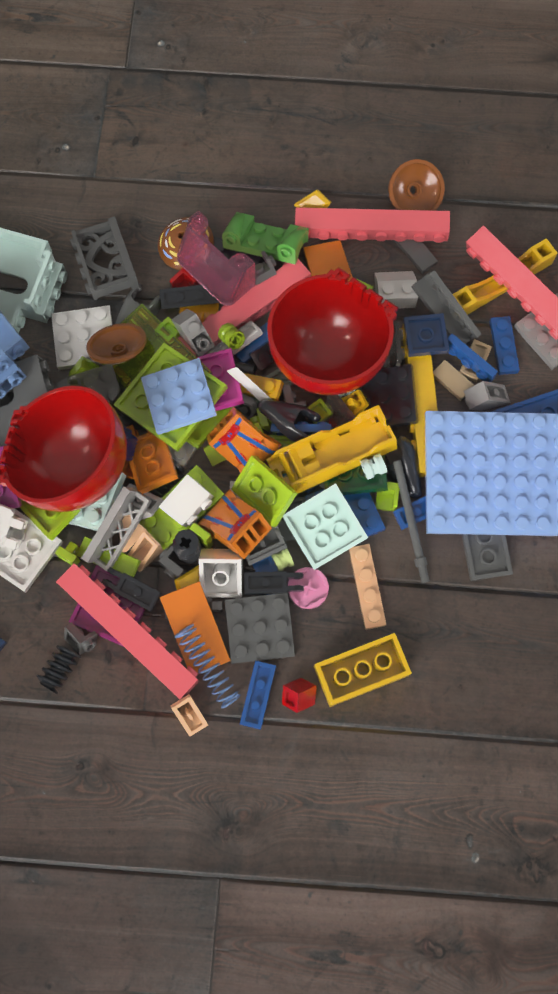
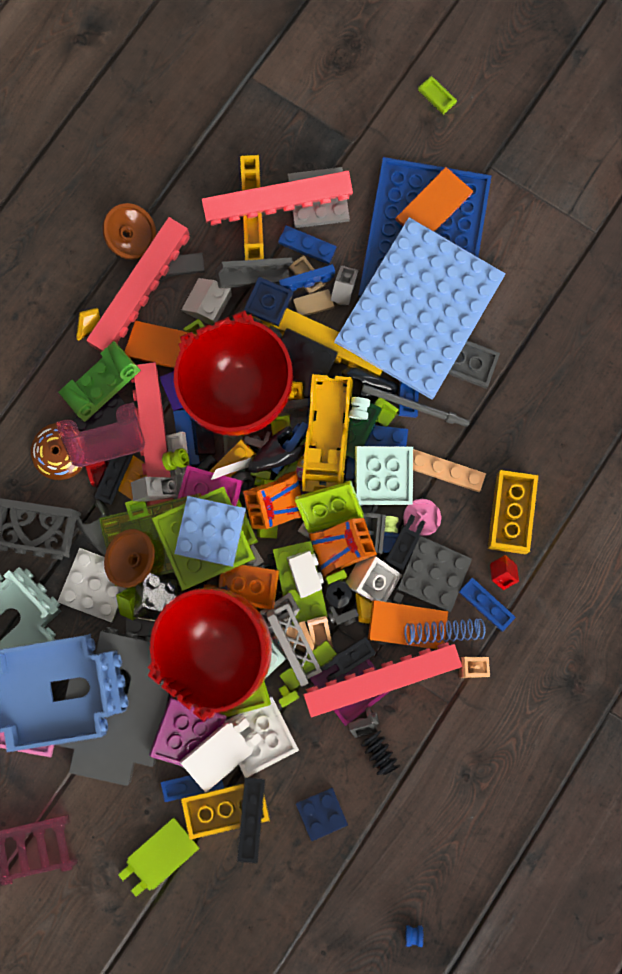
camera: 65 degrees left, 5 degrees up
(266, 269) = (128, 396): dark grey bracket -> none

